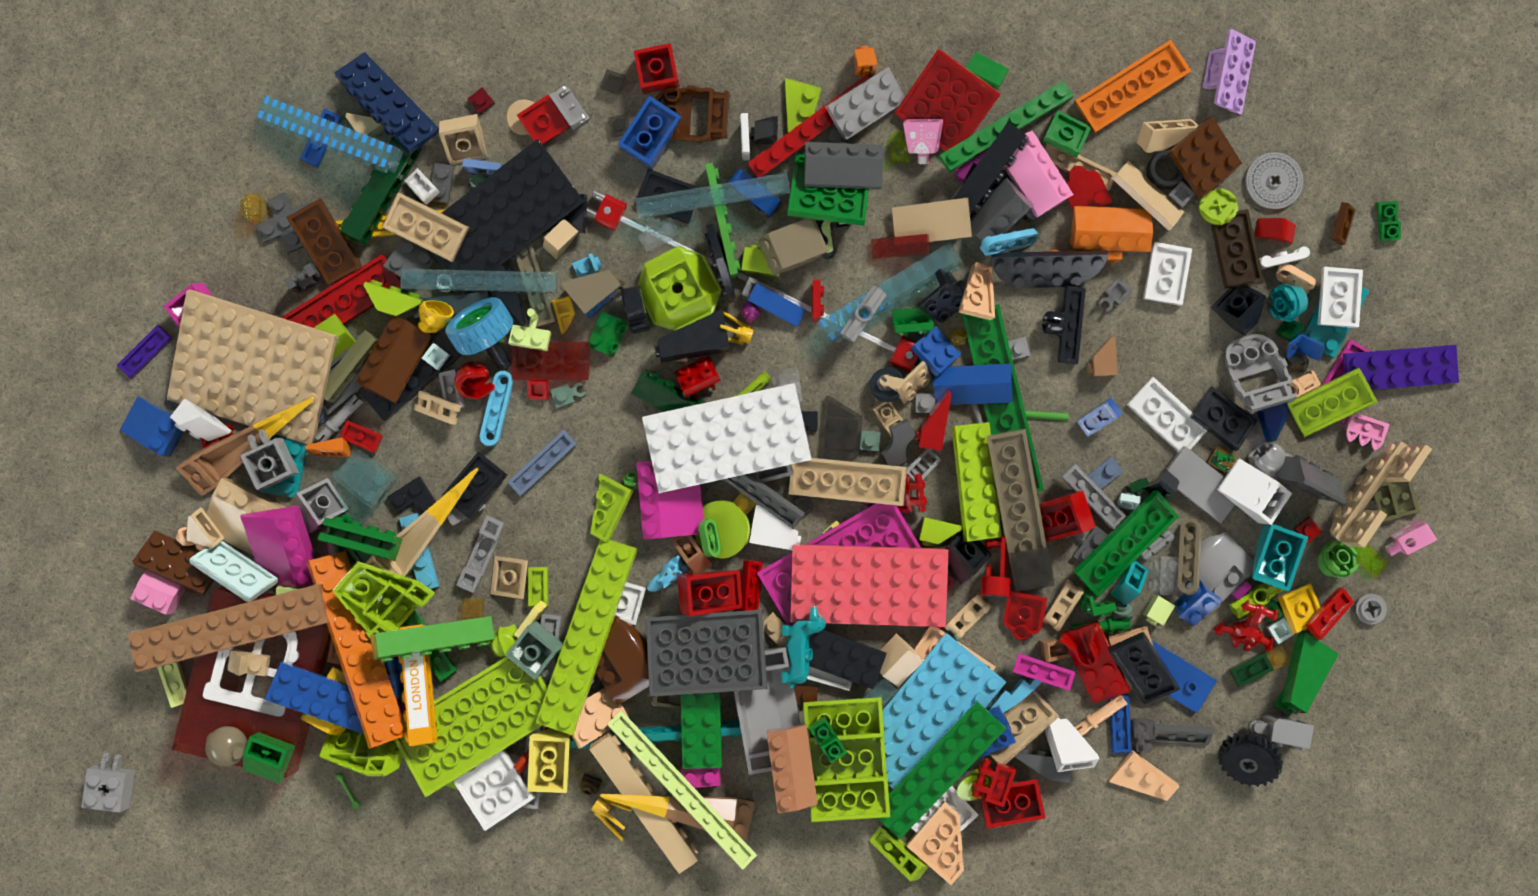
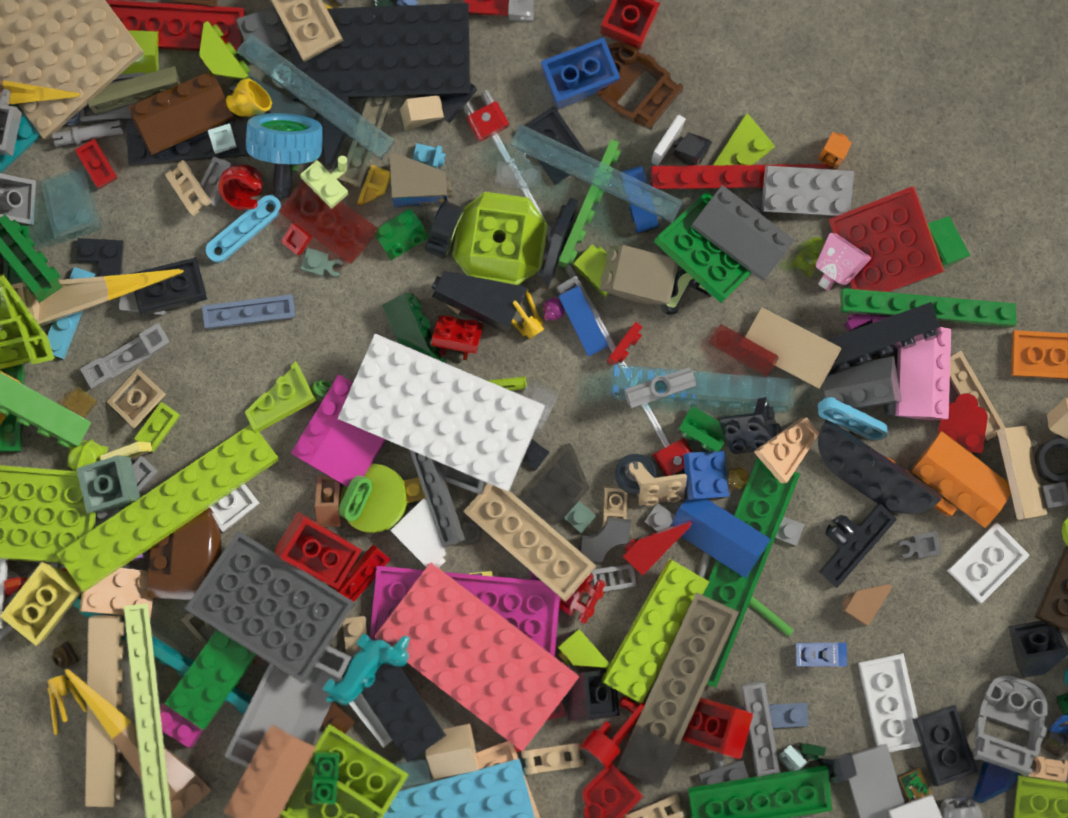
camera: 30 degrees right, 5 degrees down
(330, 448) = (59, 154): orange slope -> none
(667, 574) = (289, 505): medium azure animal -> none
(1067, 133) = (983, 356): green plate -> none

